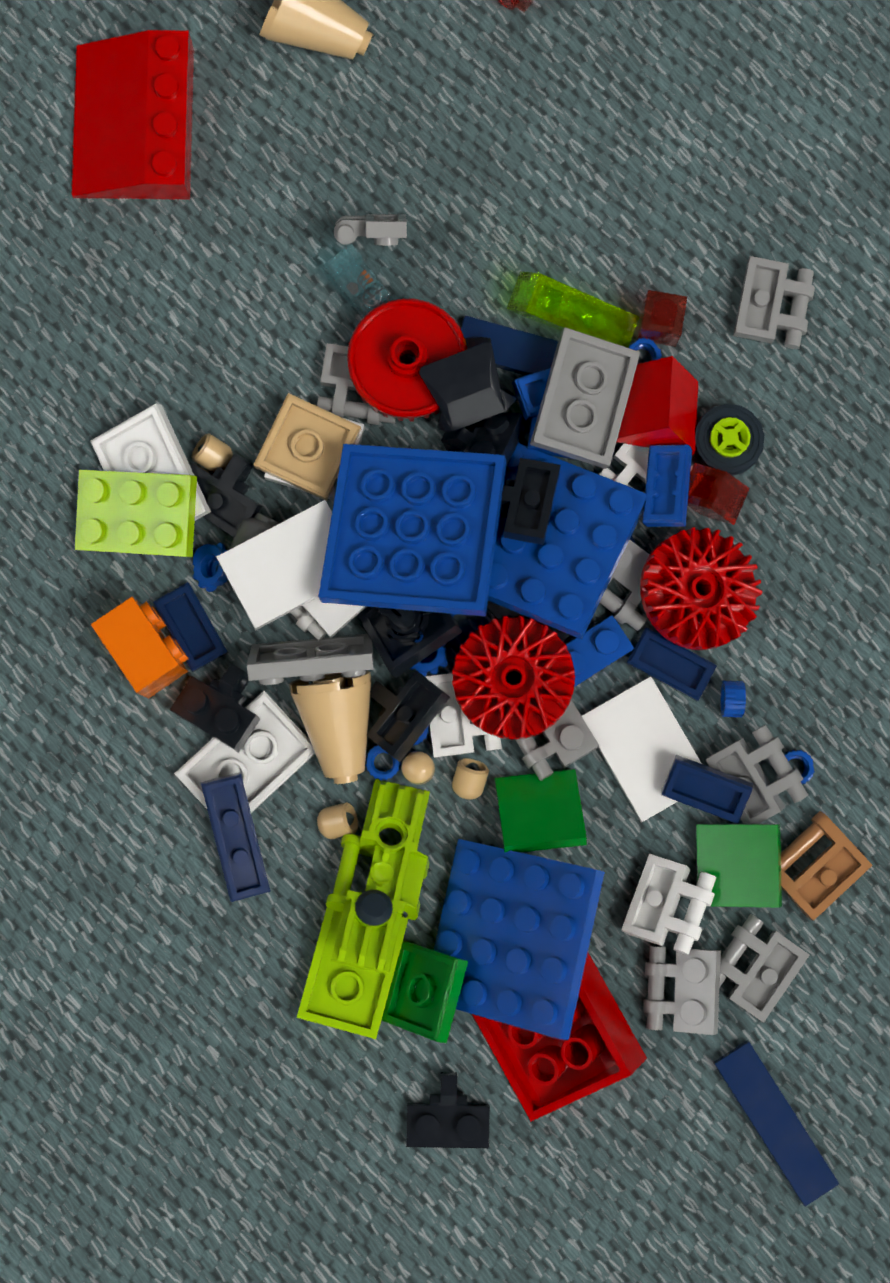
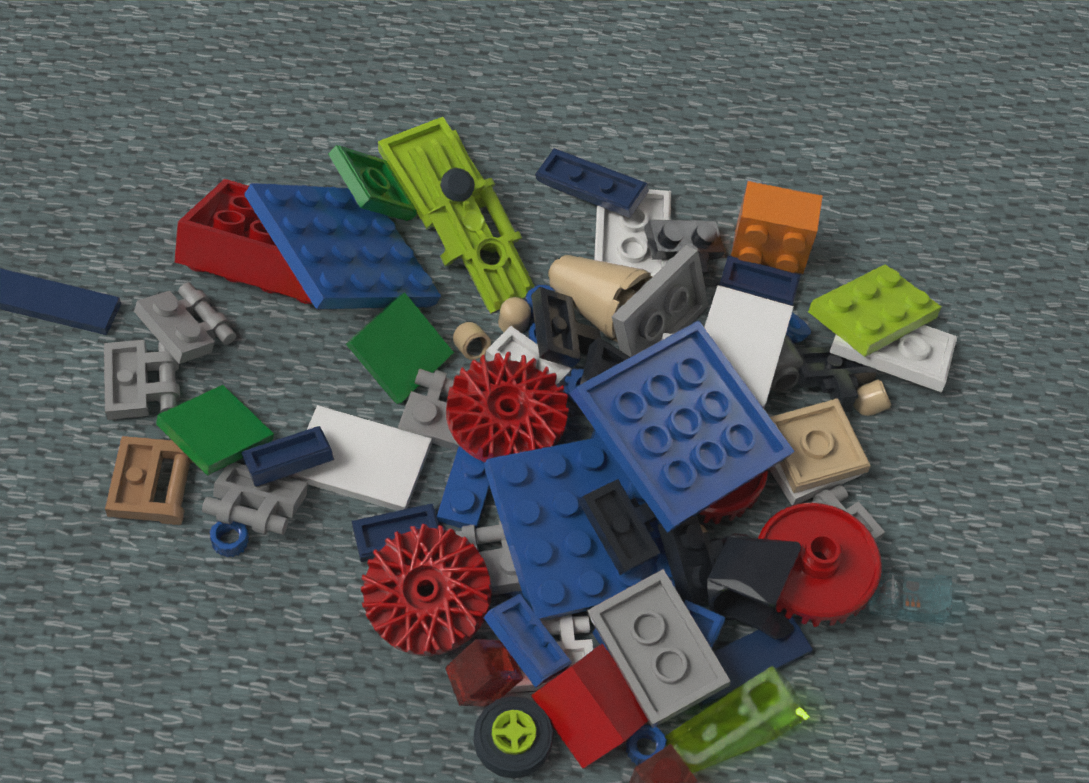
camera: 135 degrees right, 25 degrees down
(333, 821) = (540, 240): tan piece -> none
(381, 227) = (949, 636): light grey plate -> none
(448, 1120) = (283, 140): black hinge -> none
(657, 900) = (257, 358): white plate -> none
(733, 699) = (325, 541): blue axle -> none

